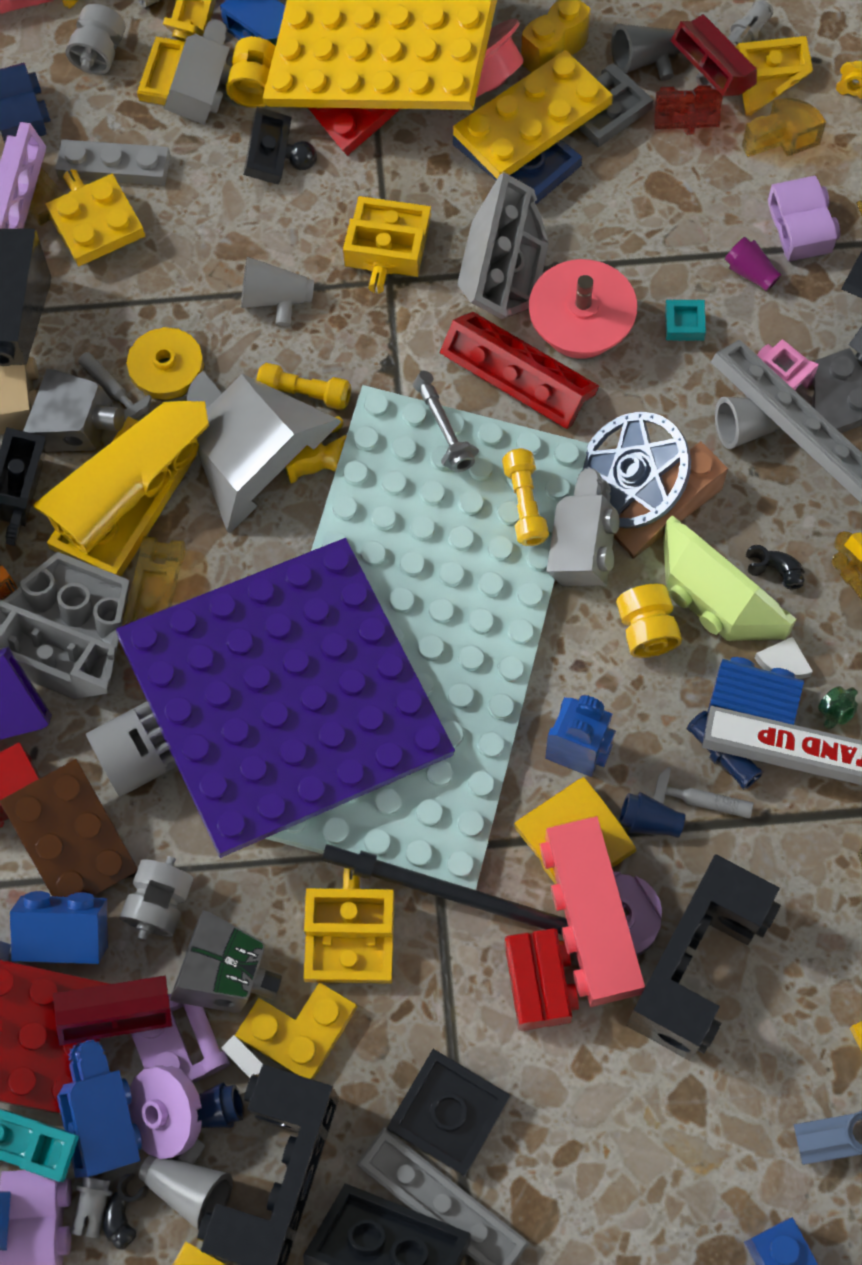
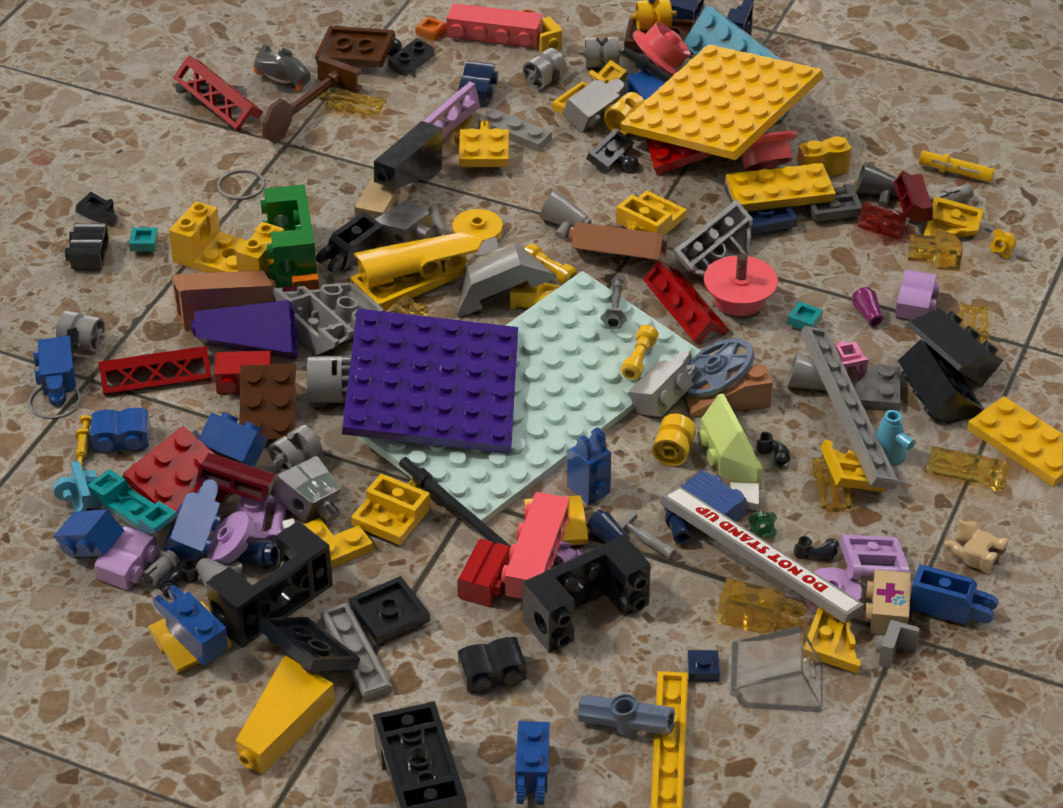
camera: 25 degrees right, 25 degrees down
(382, 308) = (619, 241): none -> nougat slope
(643, 1138) = (492, 665): none -> black brick

